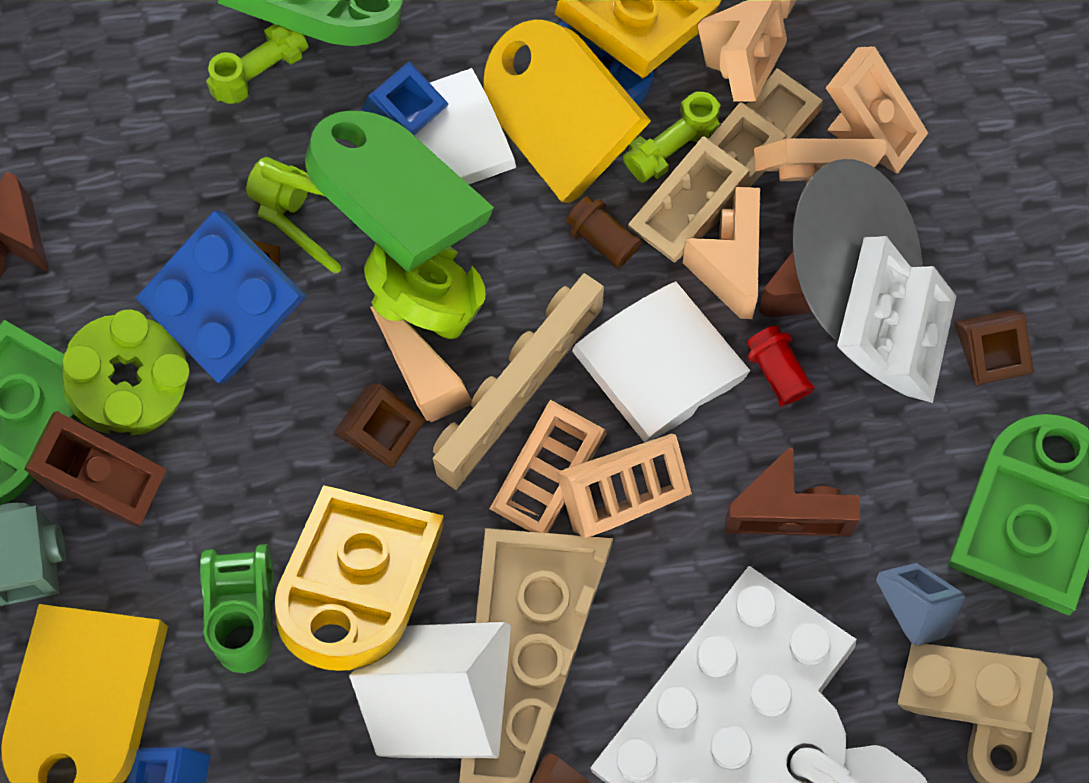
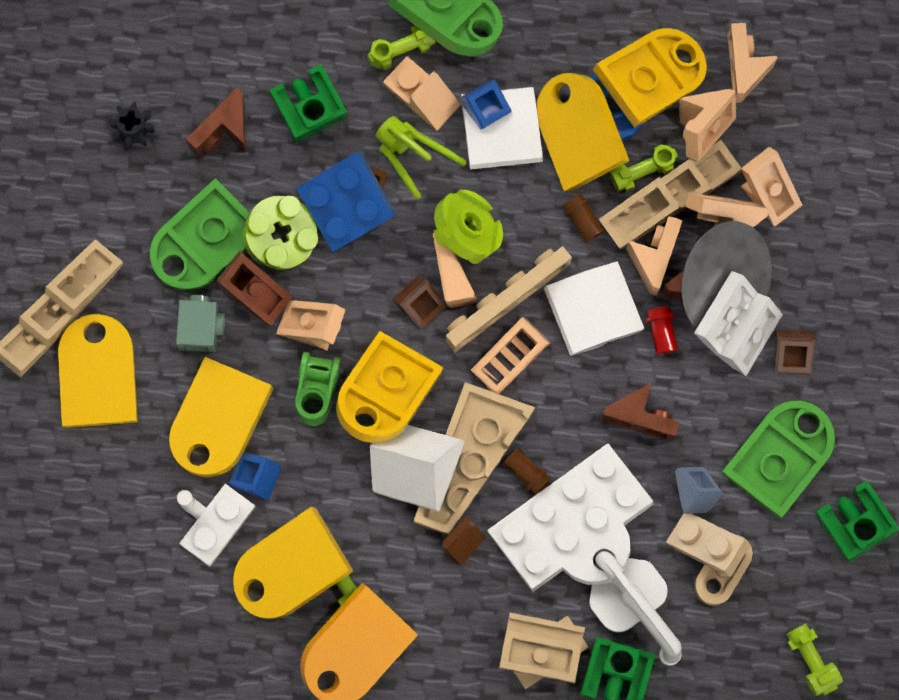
camera: 10 degrees right, 10 degrees up
(155, 162) = (326, 99): none -> green brick
(207, 501) = (311, 323): none -> light nougat slope
(293, 111) = (422, 93): none -> light nougat slope
(393, 186) = (464, 162): bright green tile -> none
(577, 495) = (537, 367): light nougat slope -> none
(629, 649) = (527, 471): none -> reddish brown pin

